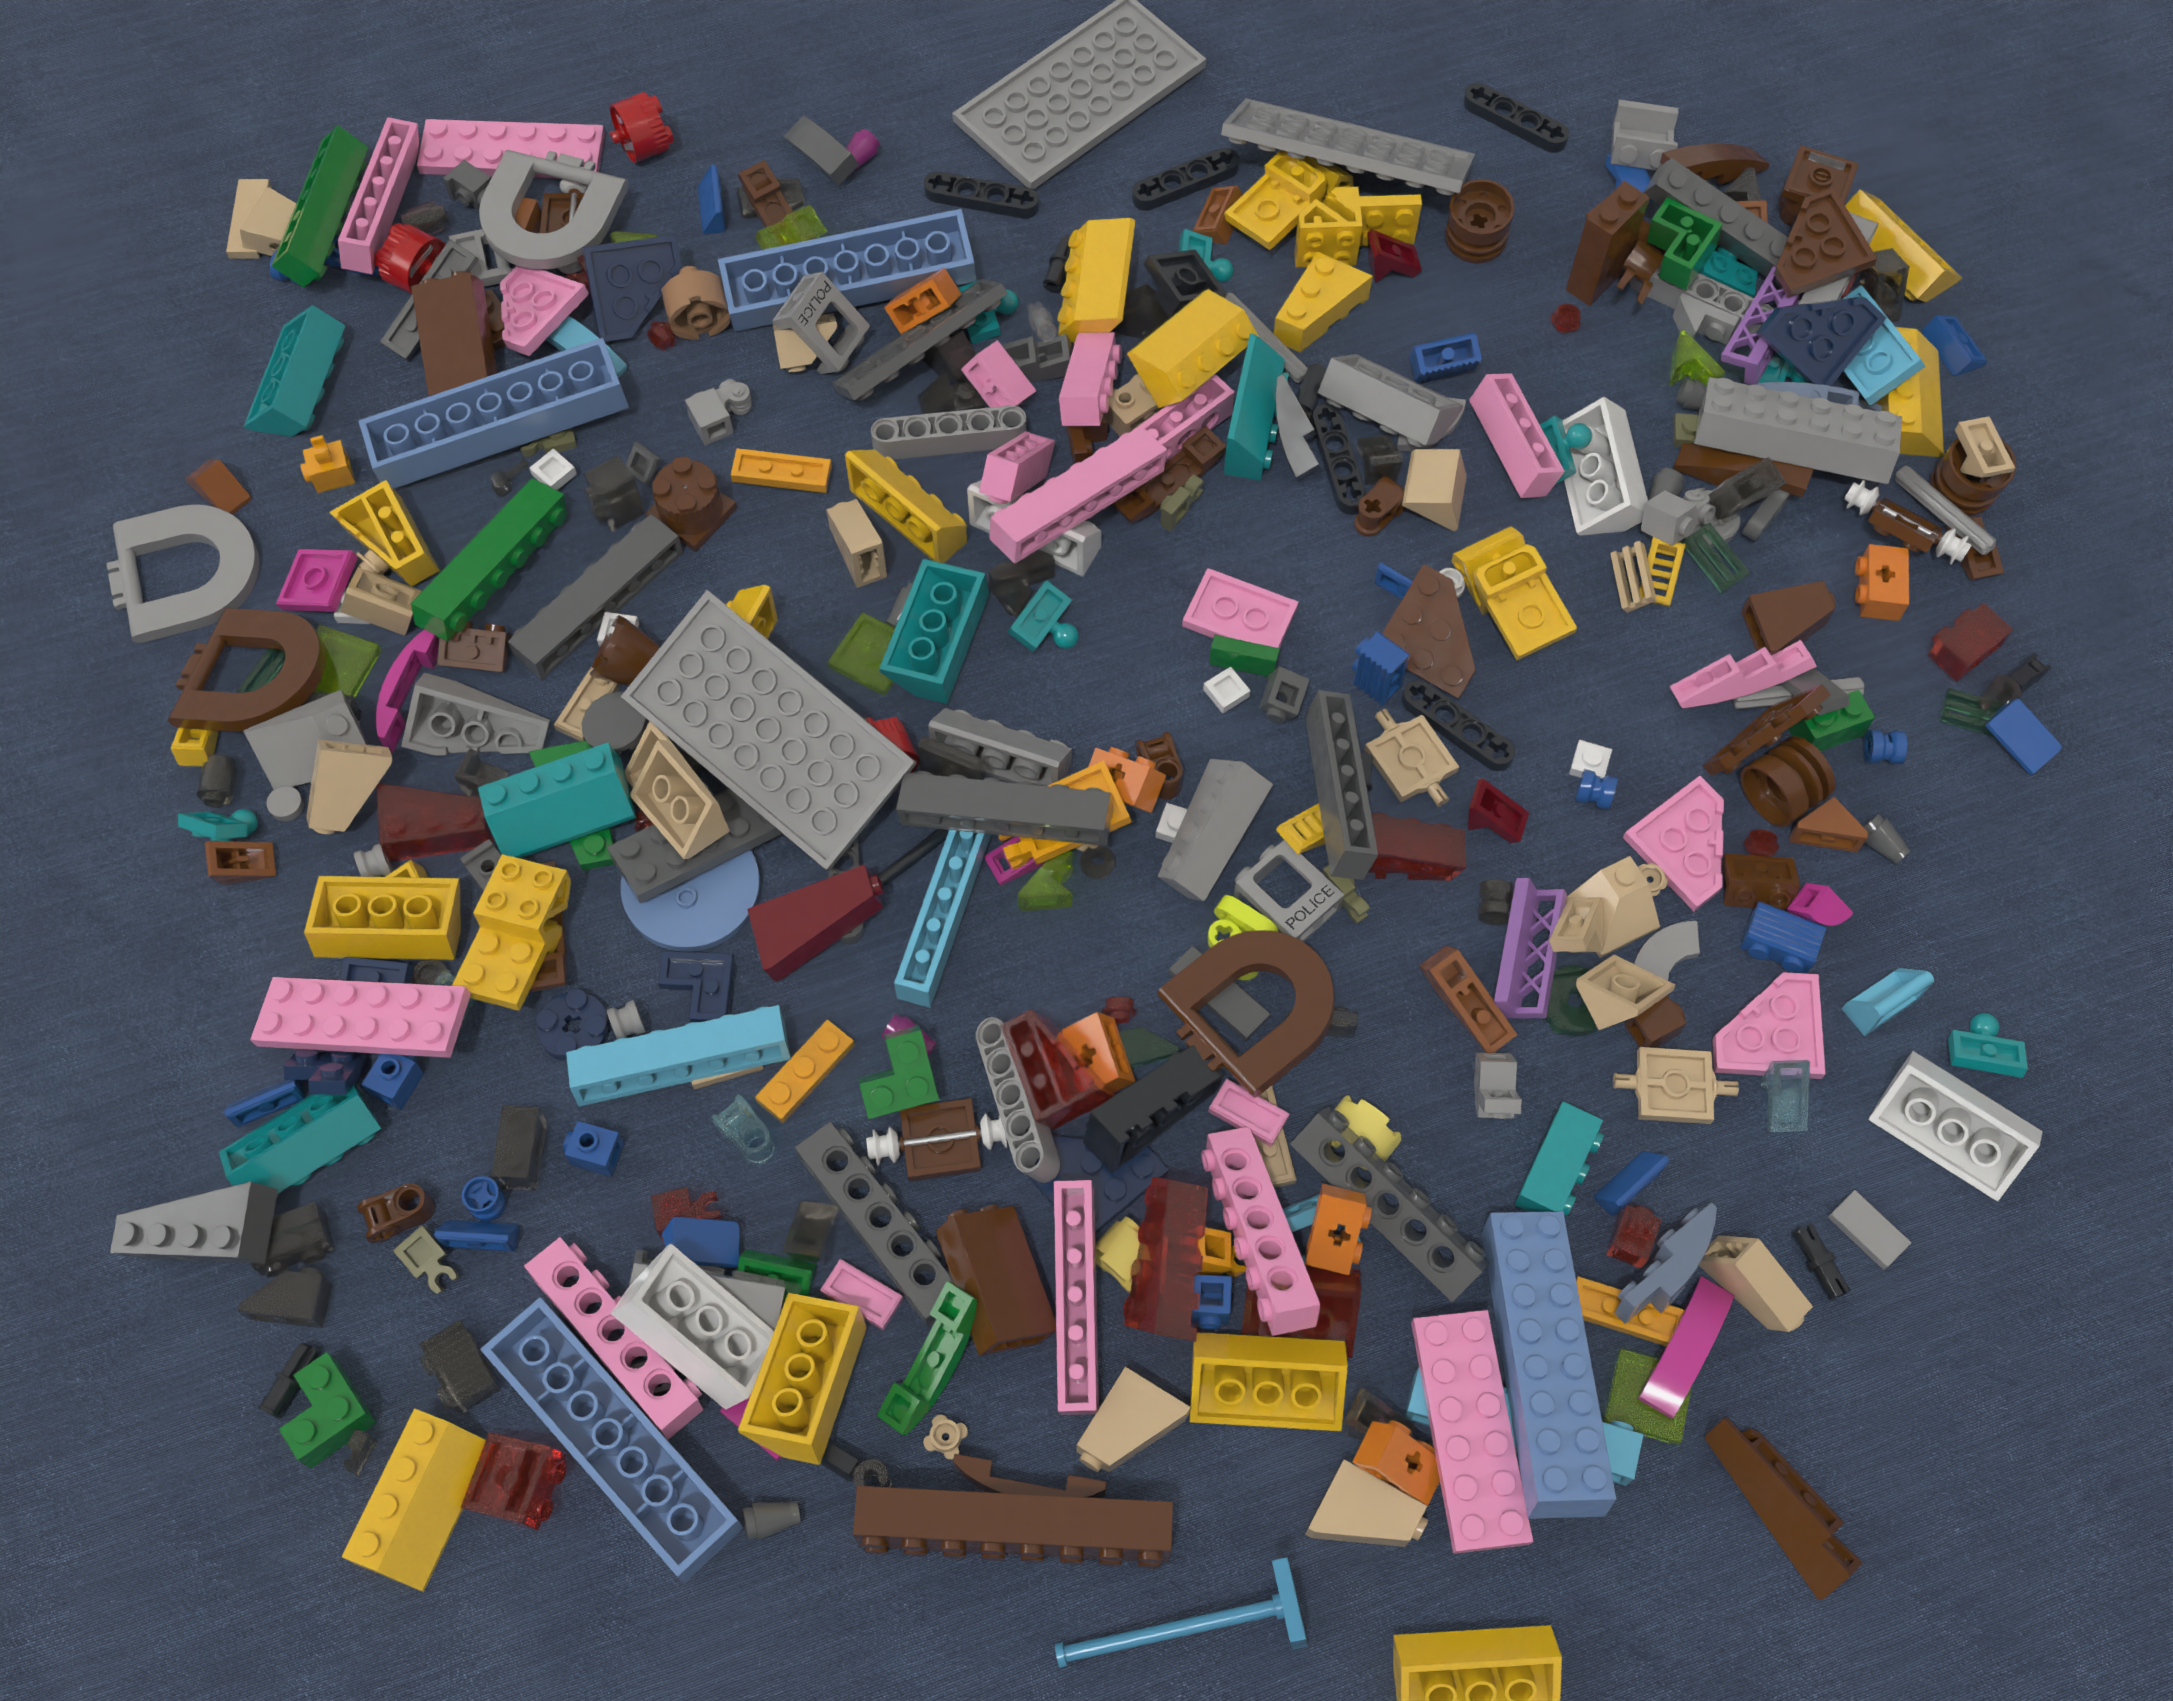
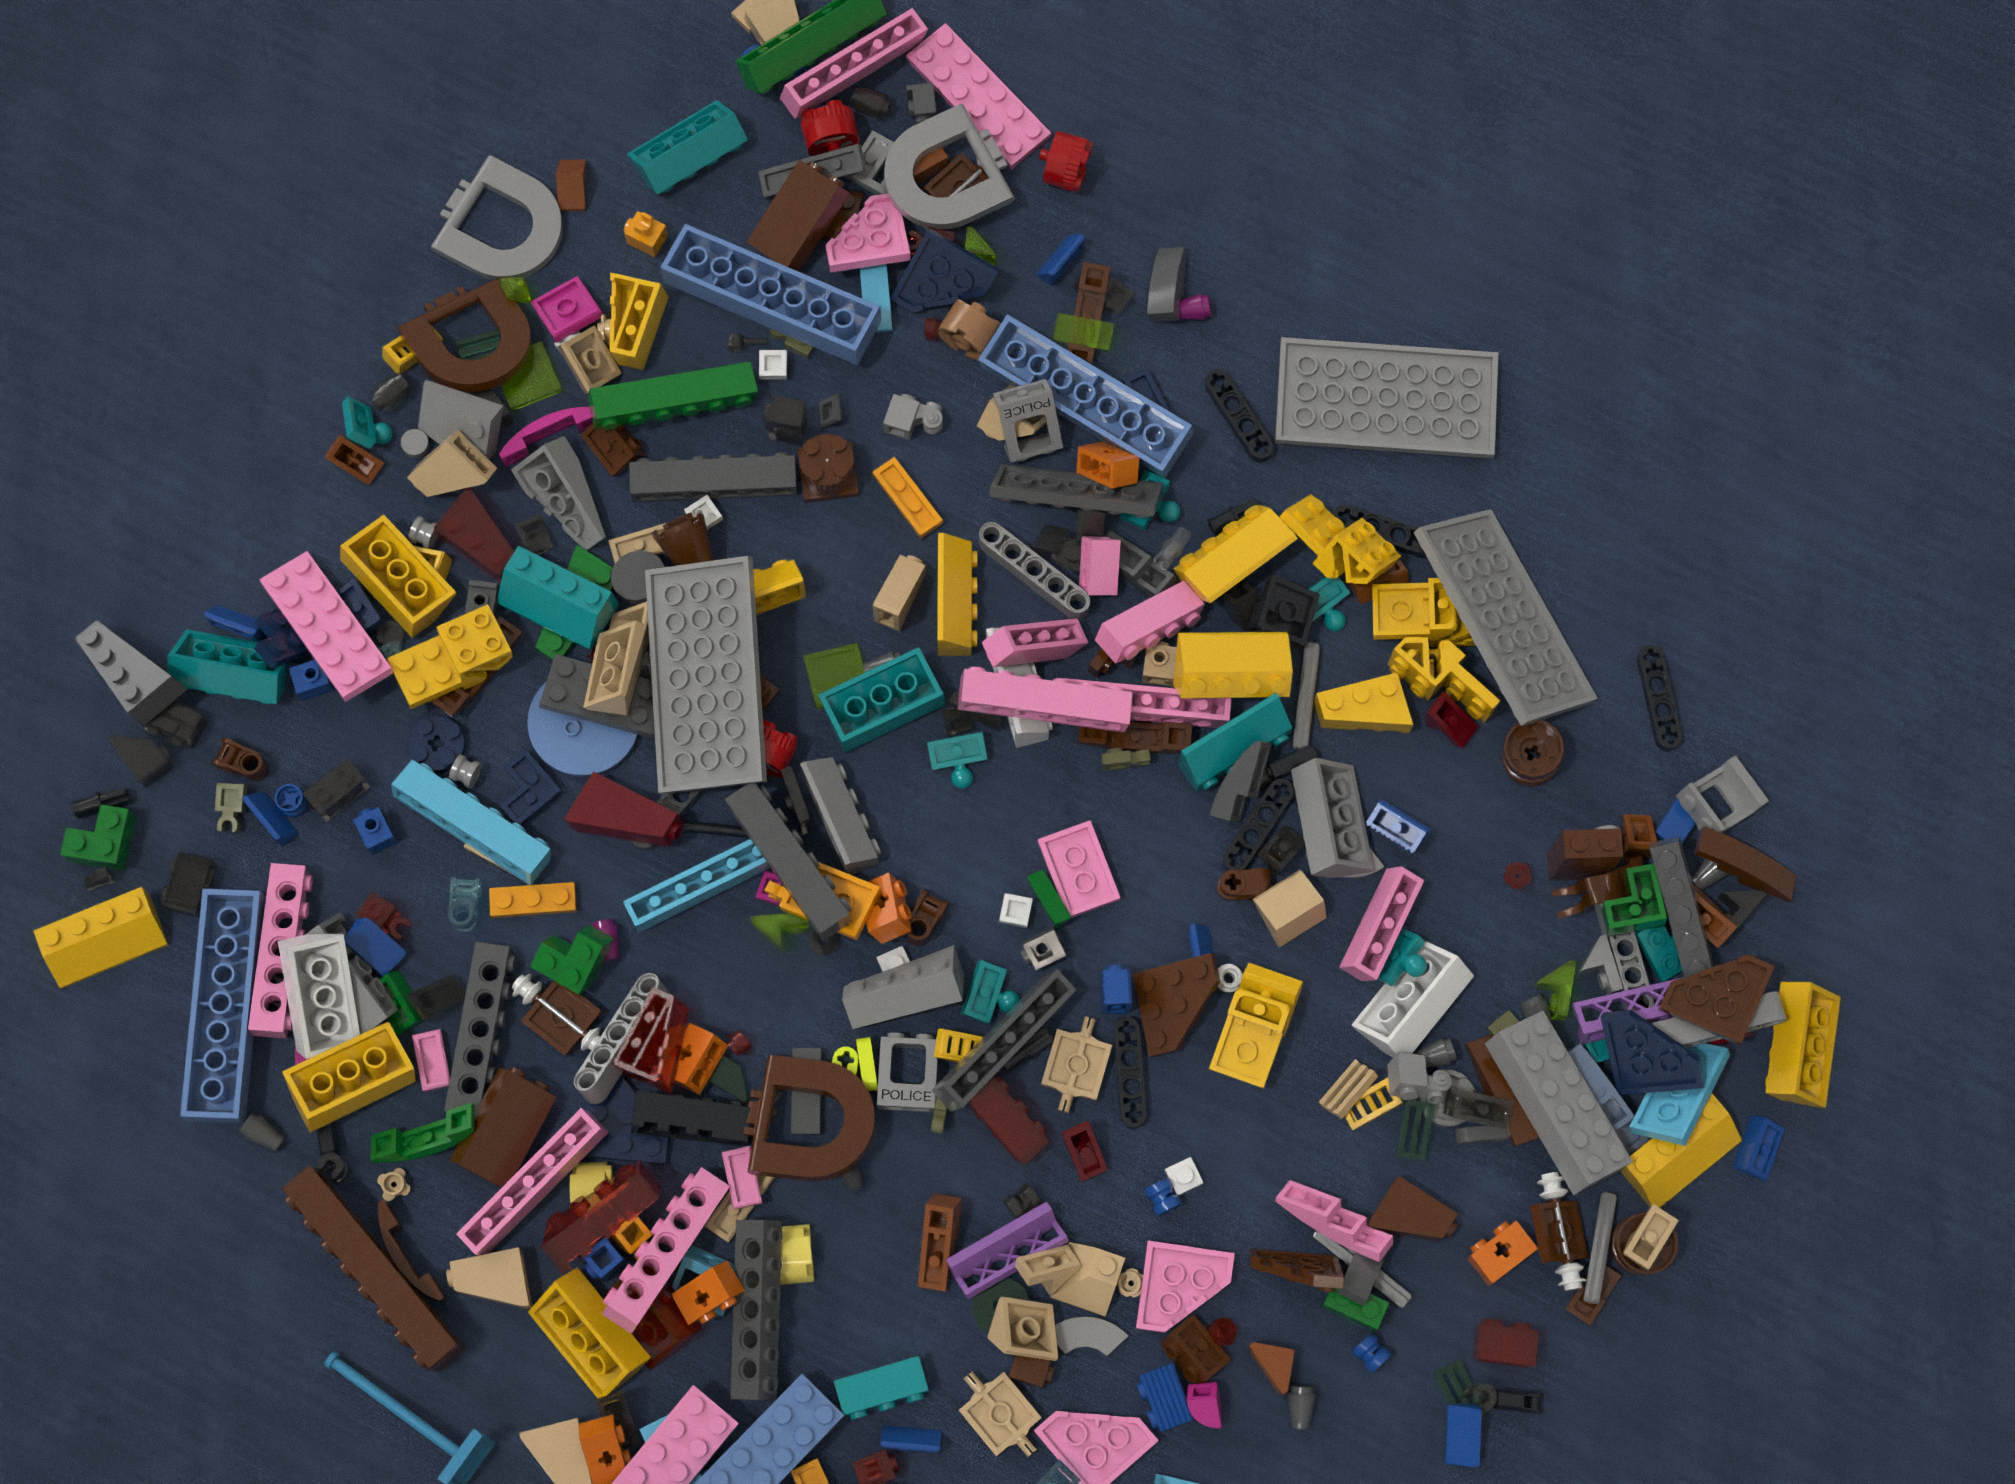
camera: 45 degrees right, 10 degrees up
(251, 599) = (516, 288): none -> clear neon green slope
(515, 1481) = (156, 978): clear red plate -> none
(1204, 189) = (1340, 550): none -> yellow piece
(1284, 775) = (985, 993): none -> teal plate
(1496, 1086) = (895, 1308): light grey brick -> none
(1788, 781) = (1277, 1312): reddish brown wheel -> none
(1813, 173) = (1791, 948): reddish brown piece -> none
(1887, 282) = (1750, 1061): clear smoke slope -> none

